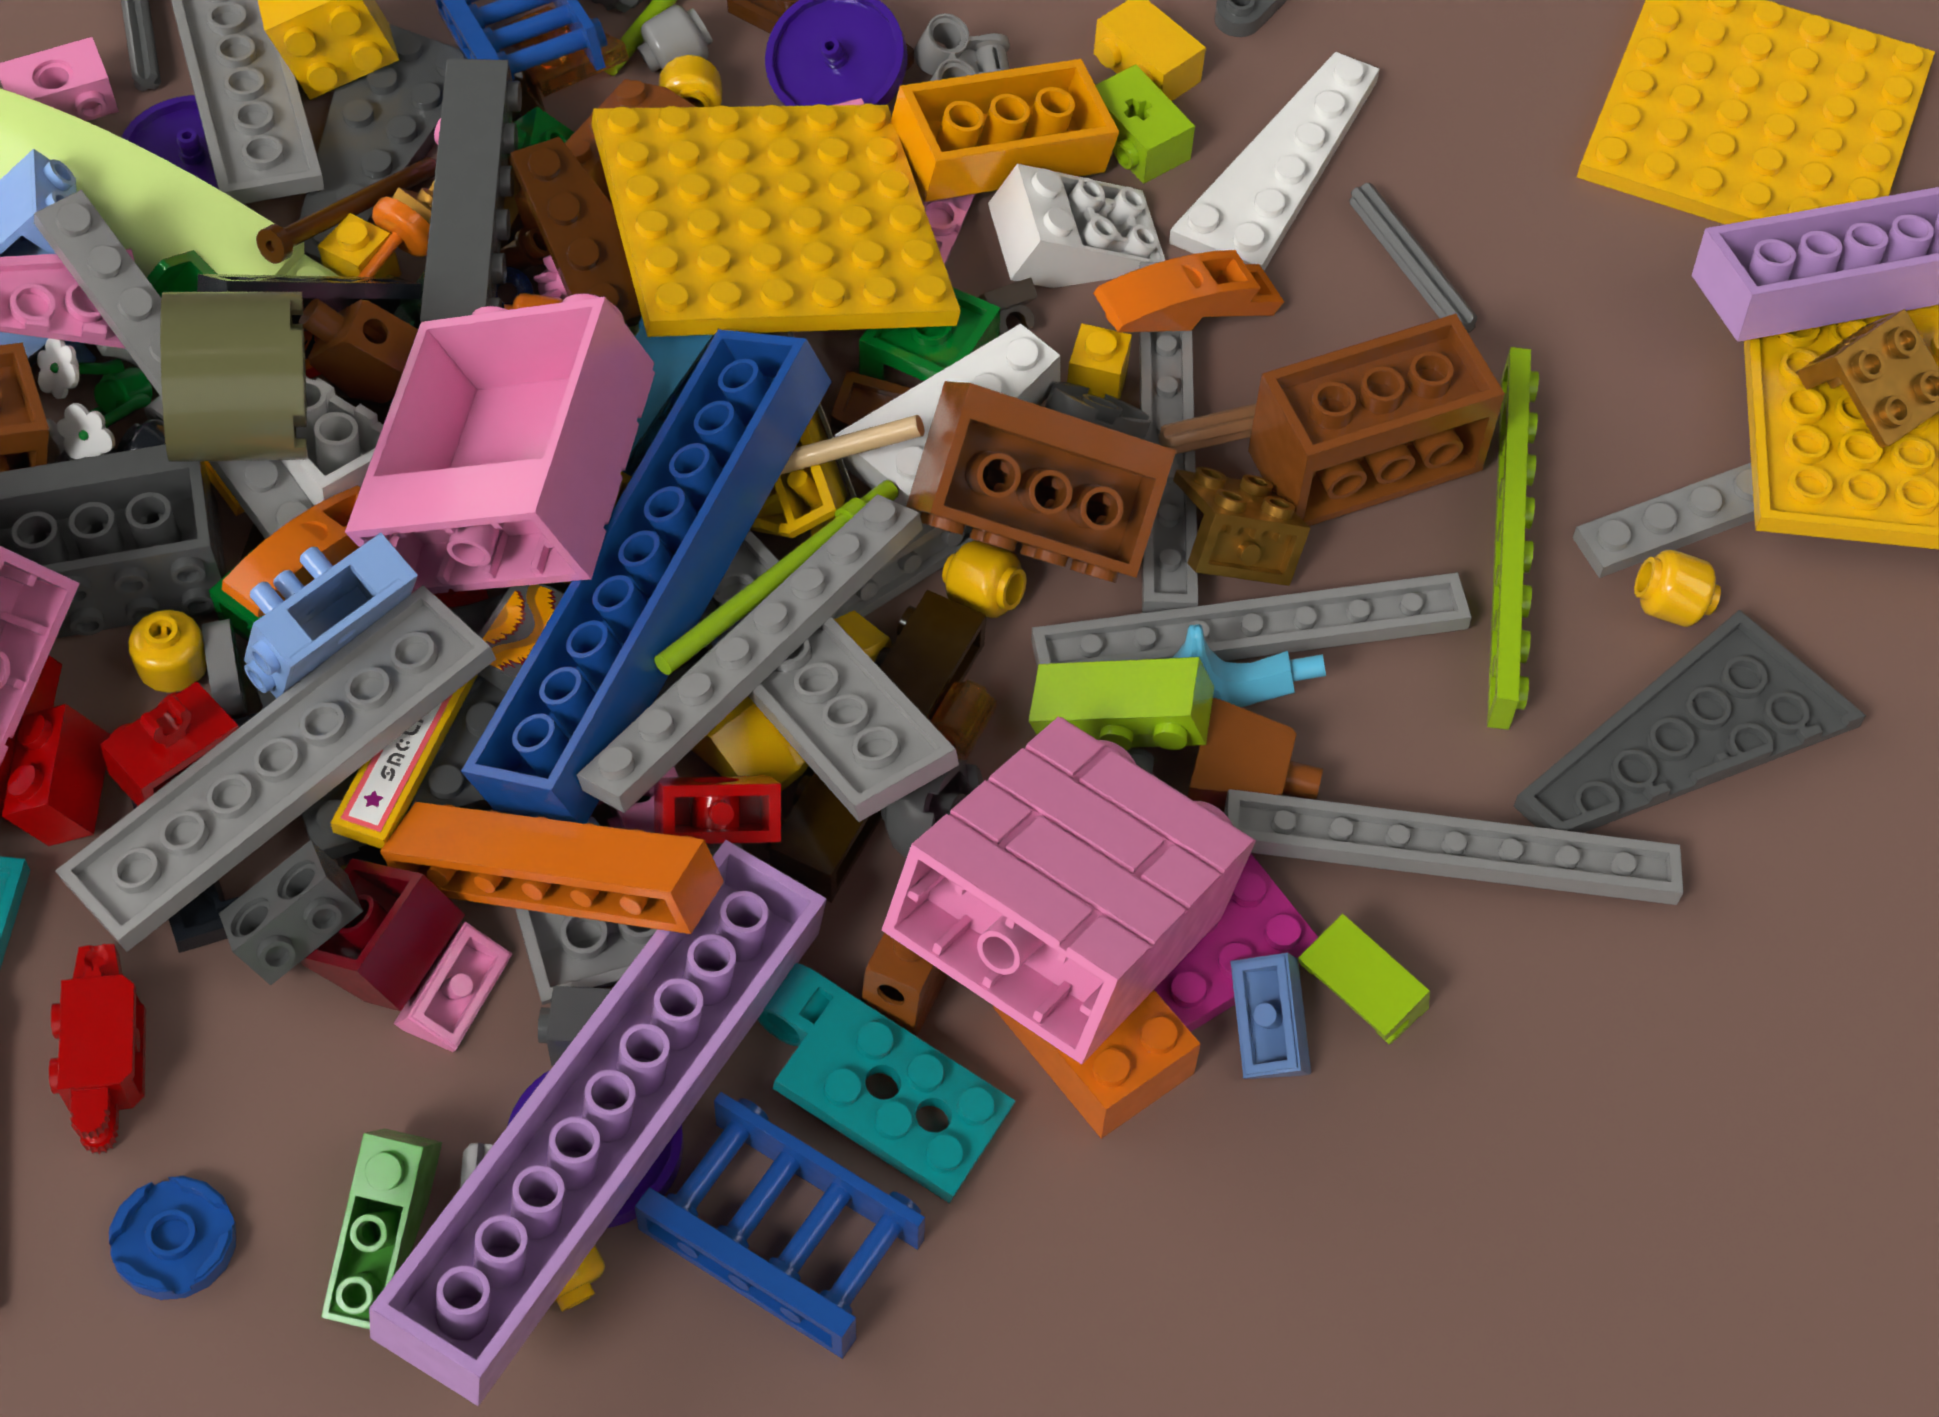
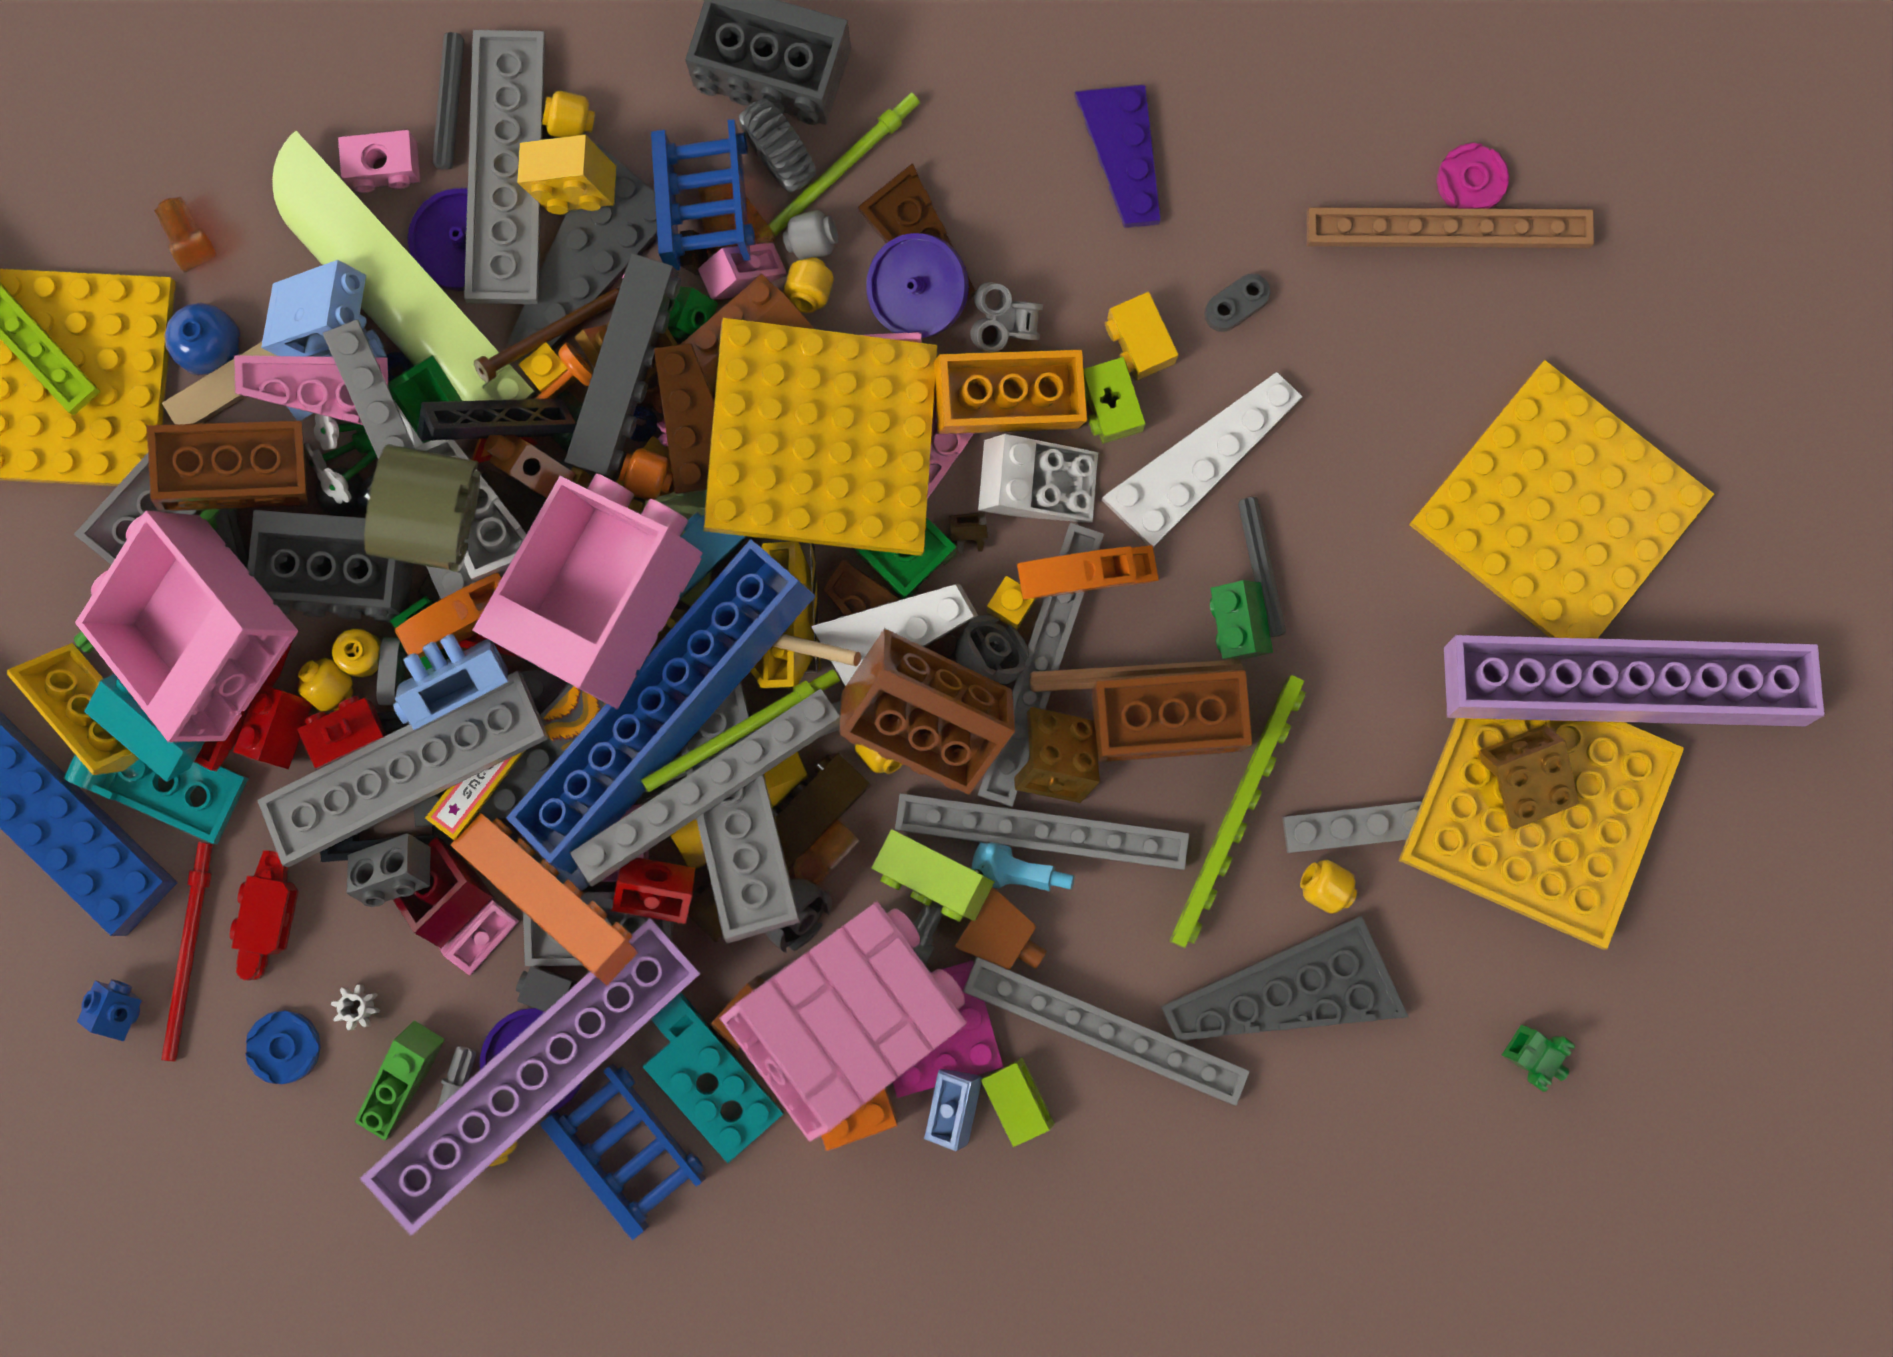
camera: 25 degrees right, 25 degrees up
(121, 695) = (324, 684): none -> yellow head
(274, 1147) = (346, 1003): none -> white gear
(578, 89) = (729, 274): none -> bright pink slope
(1402, 292) = (1240, 620): none -> green brick

